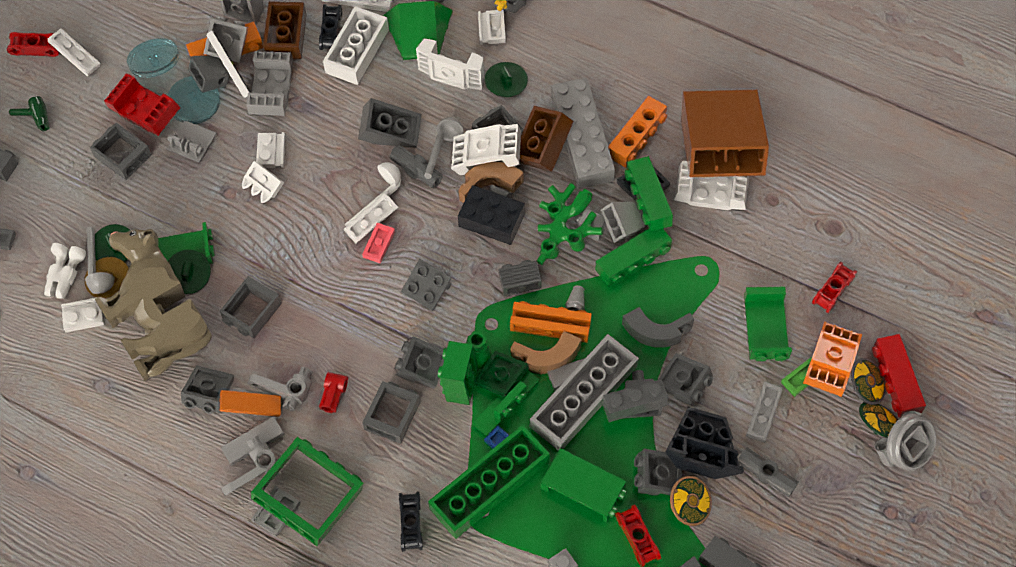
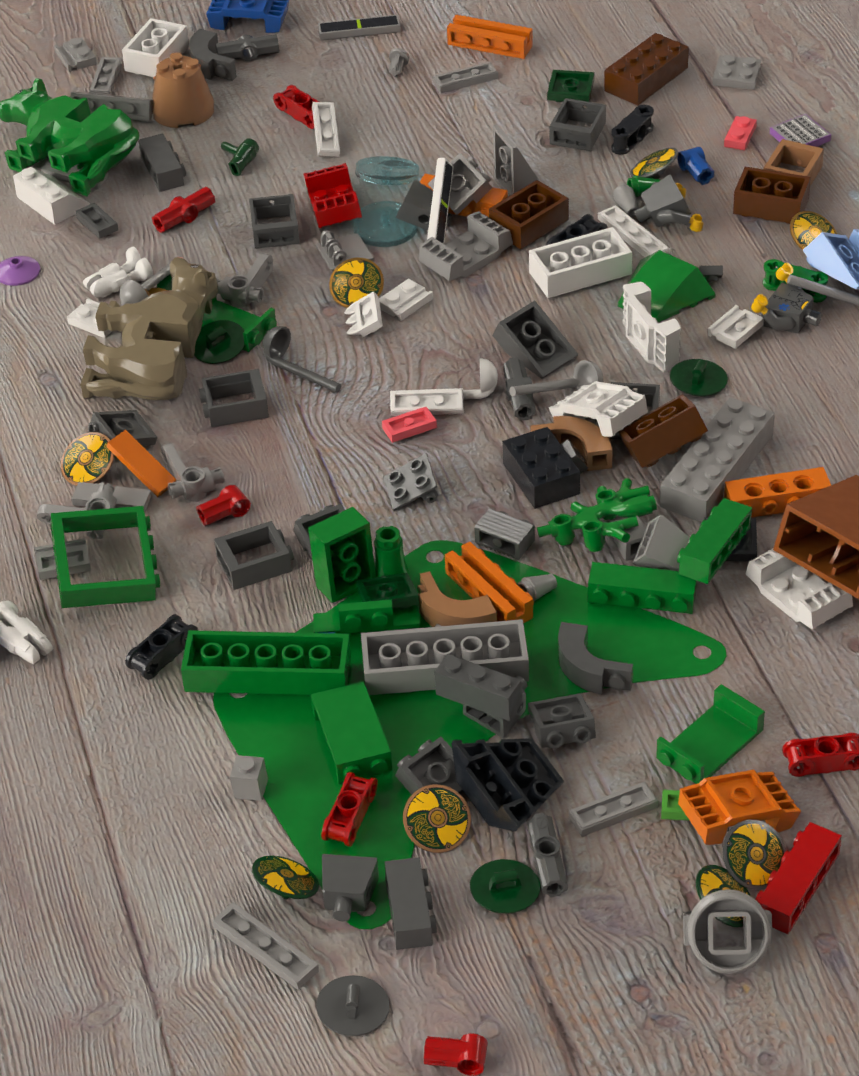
camera: 45 degrees right, 20 degrees down
(46, 185) = (183, 209): none -> red piece
(159, 215) = (247, 288): none -> light grey piece
(209, 427) = (86, 458): none -> shield
(230, 161) = (355, 280): none -> shield
(230, 249) = (275, 346): none -> dark grey piece
(763, 509) = (505, 886): none -> dark green shield

